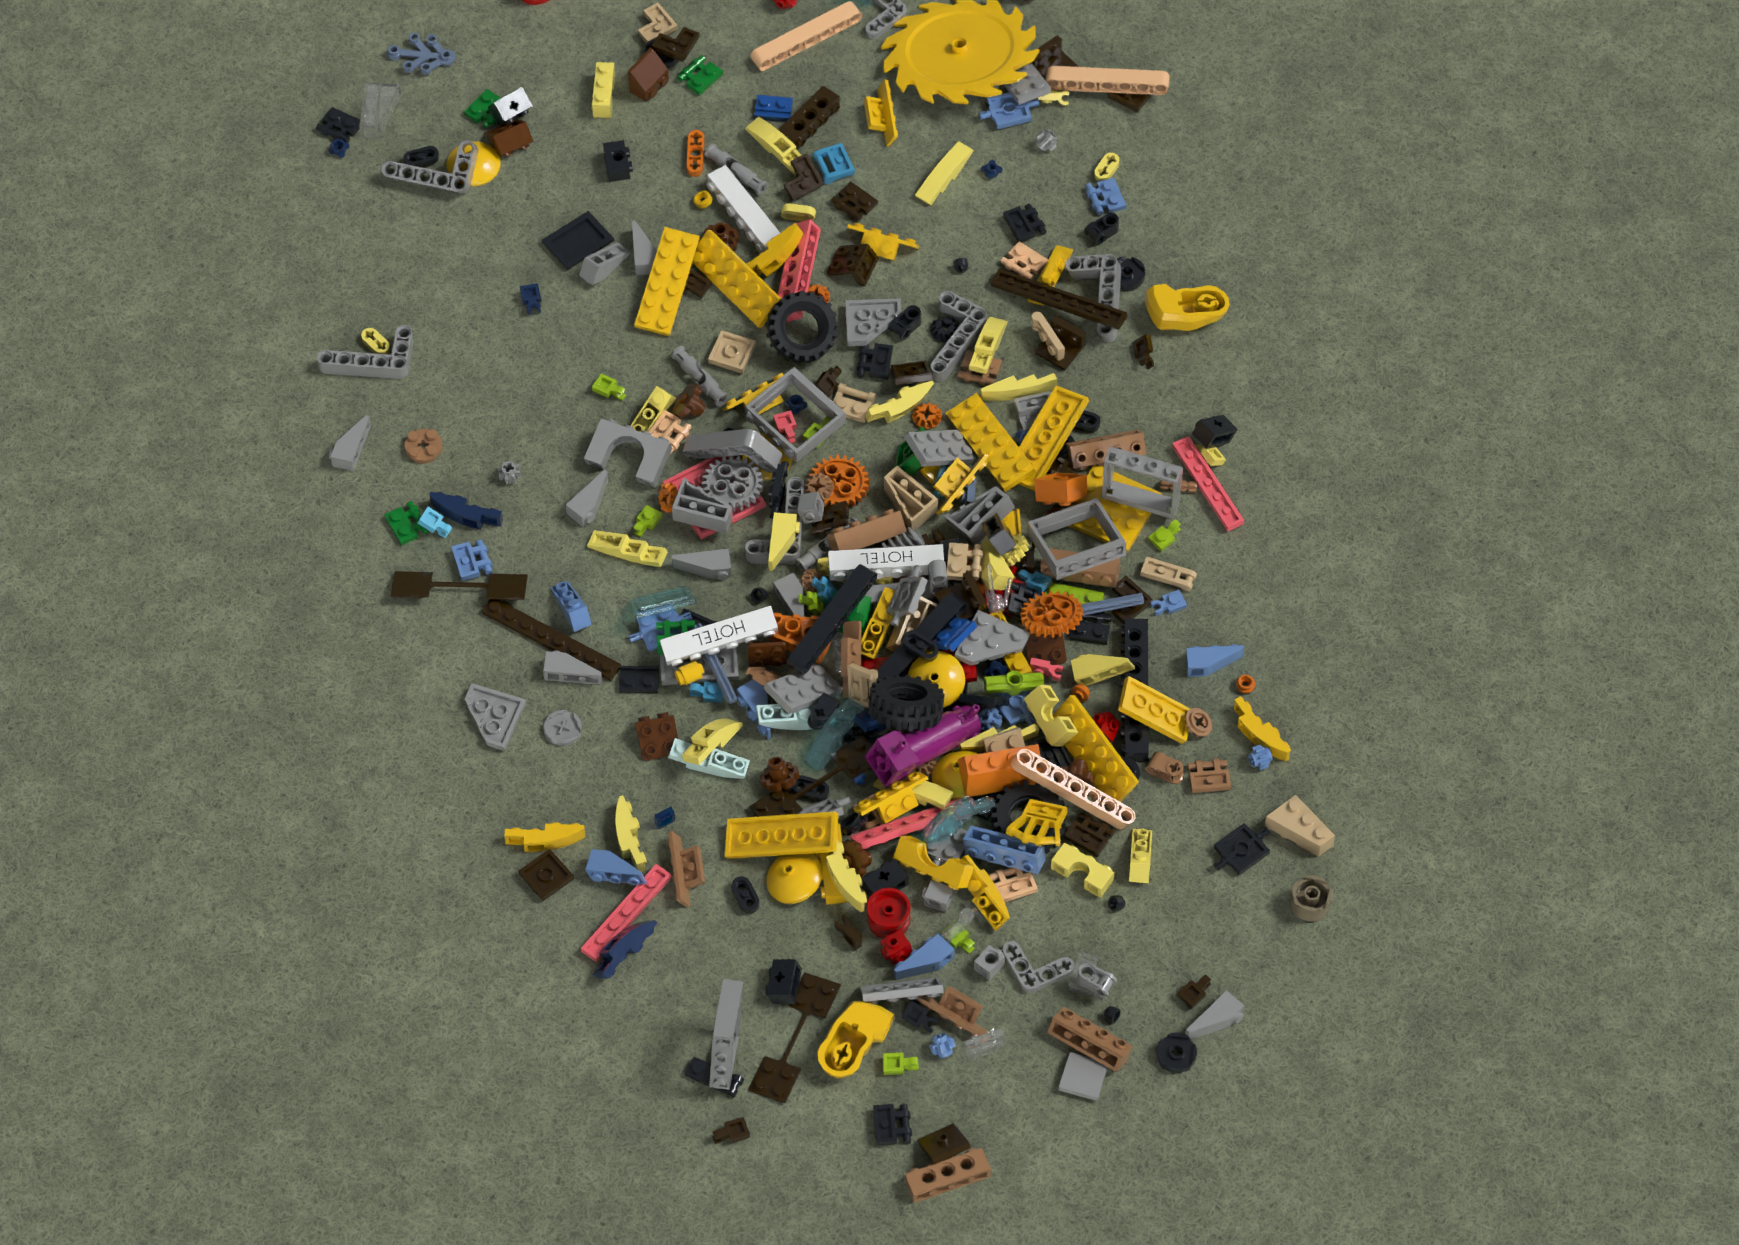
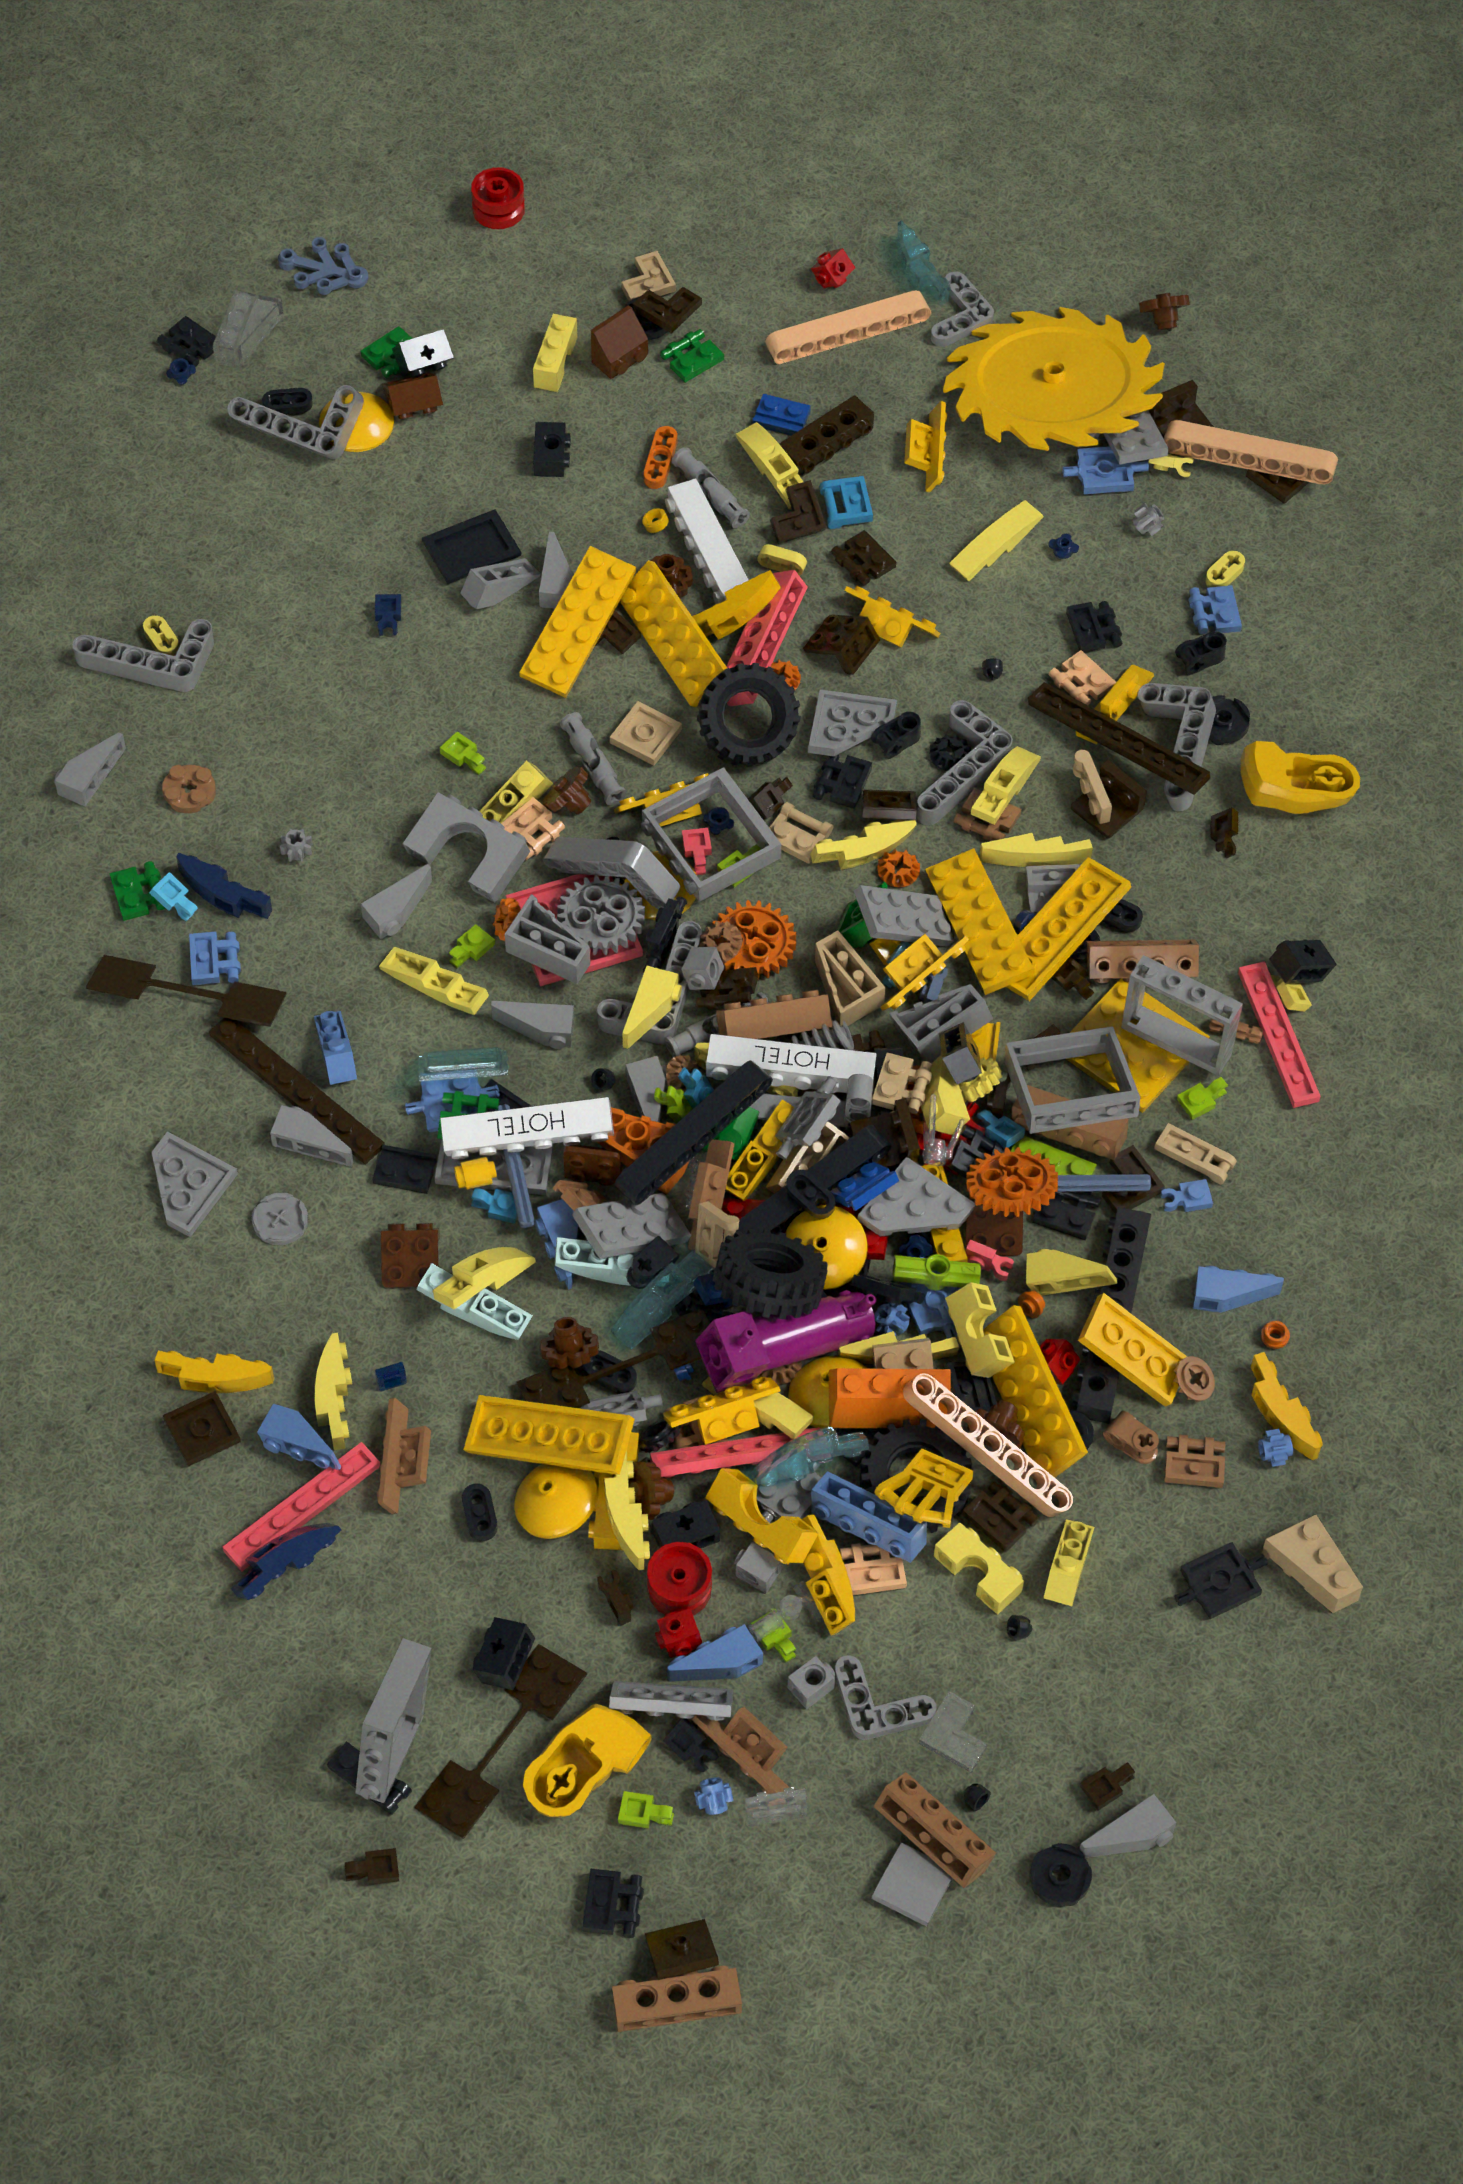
camera: 10 degrees right, 0 degrees up
(1061, 488) = (1064, 1004): orange brick -> none
(1099, 982) = (966, 1744): light grey piece -> none
(1311, 898) = (1305, 1691): dark tan brick -> none

